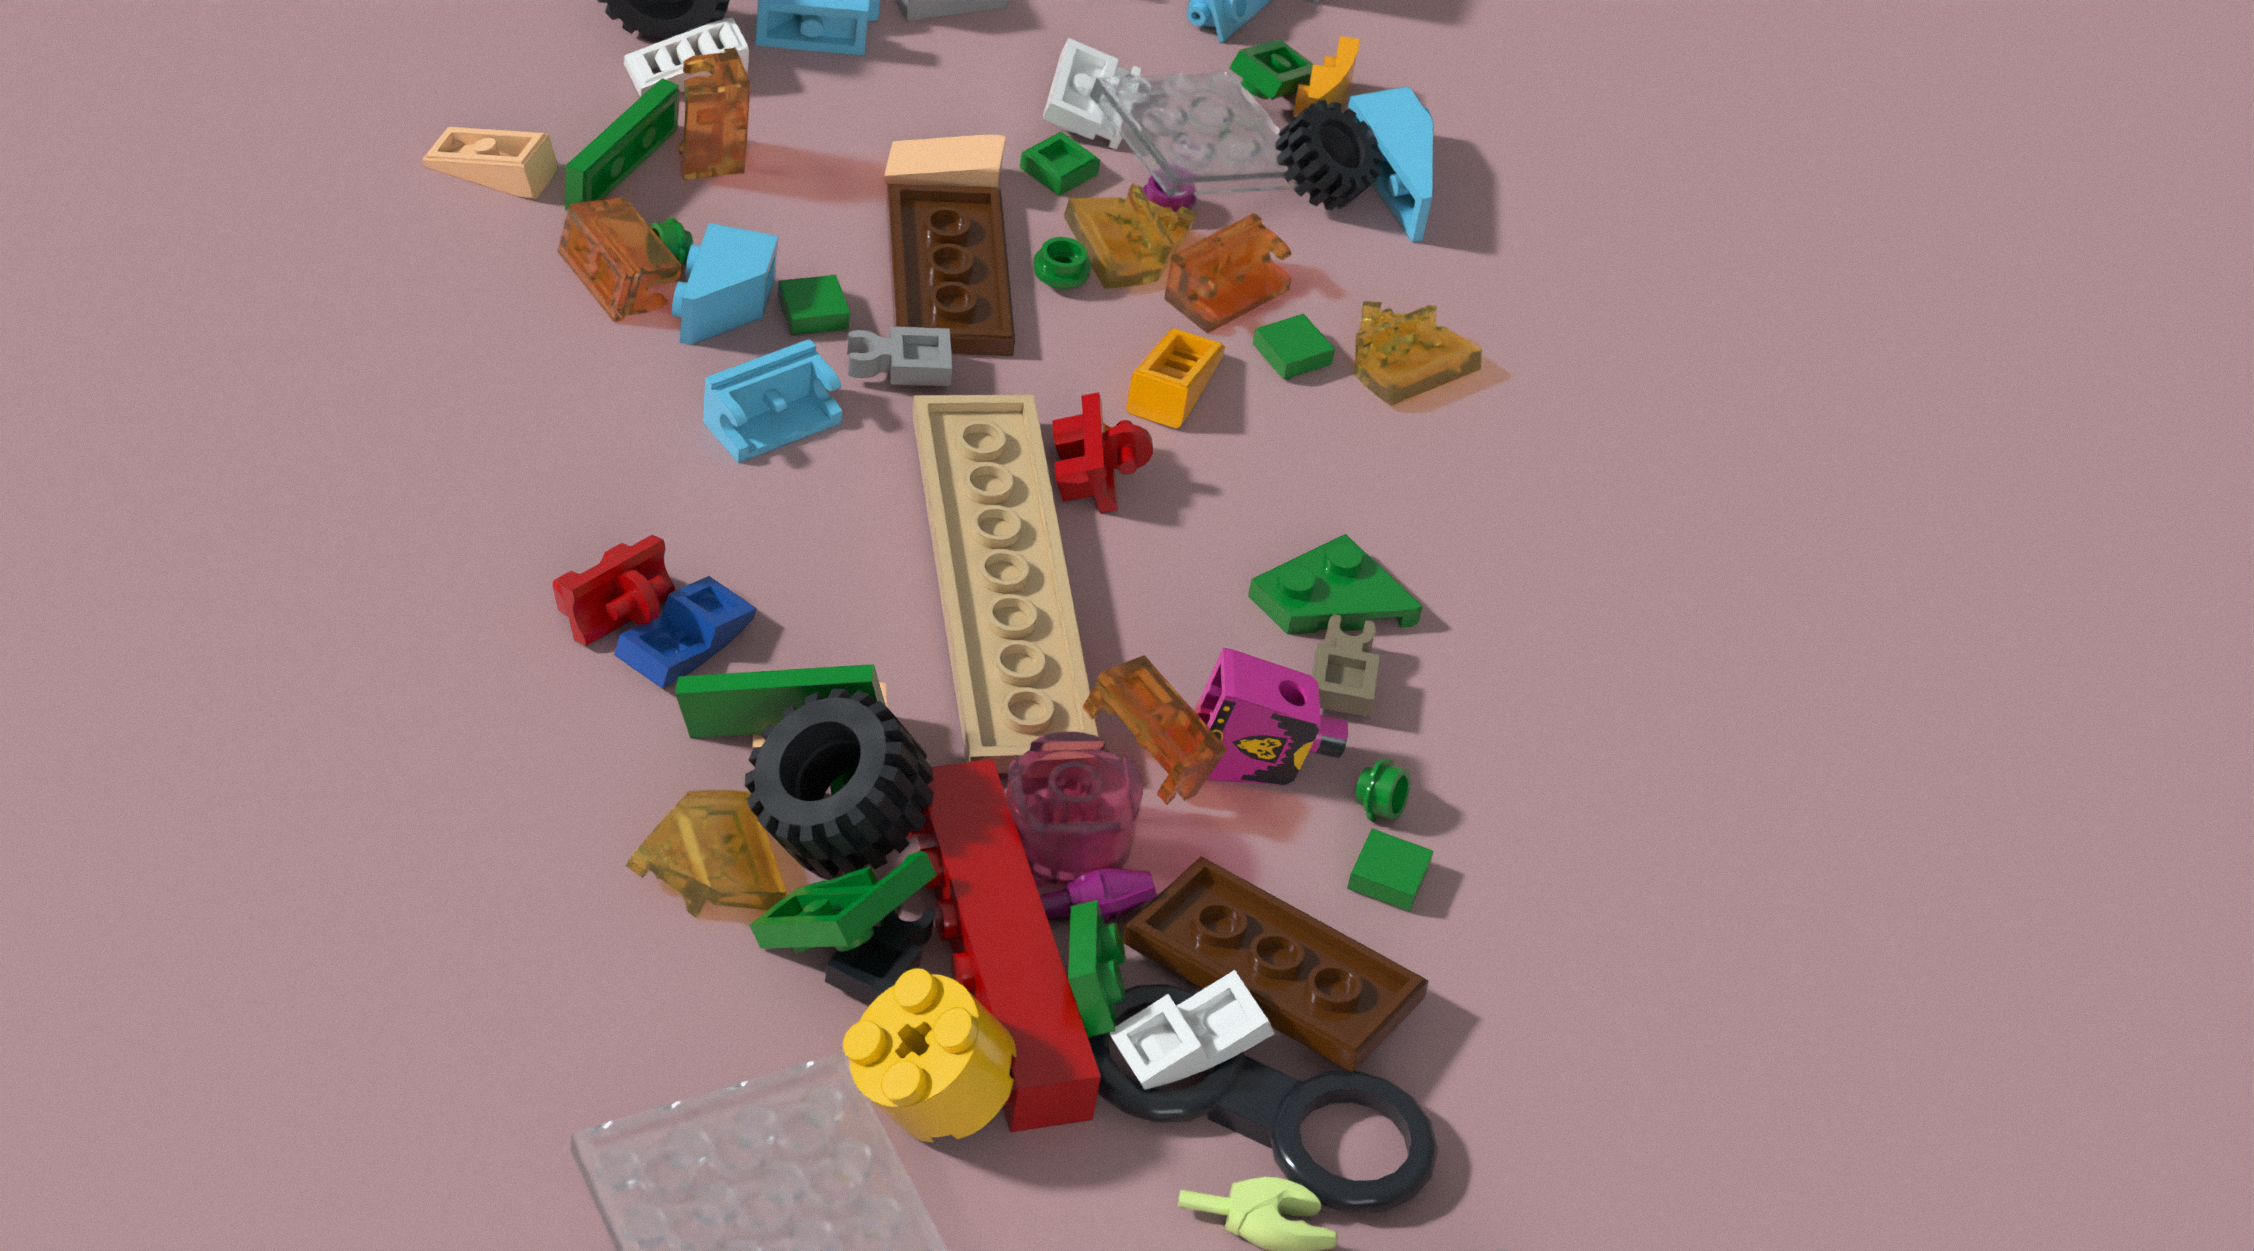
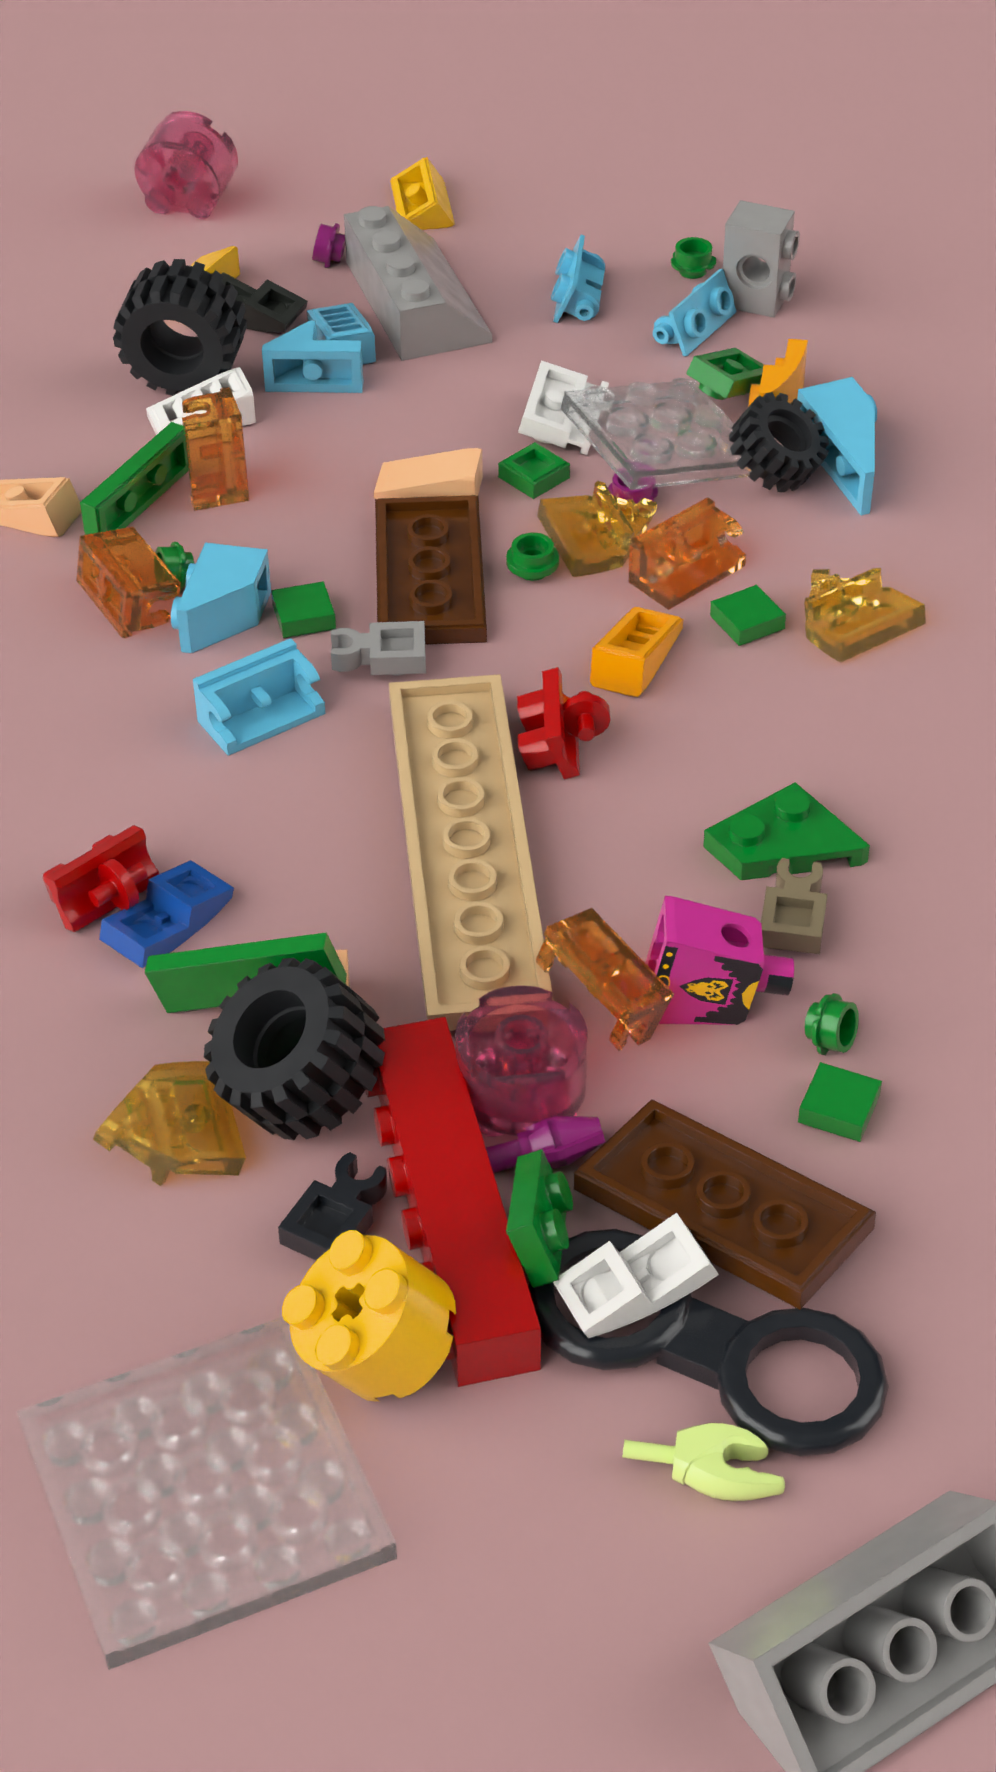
camera: 10 degrees right, 0 degrees up
(841, 909) = (291, 1172): green wing -> none

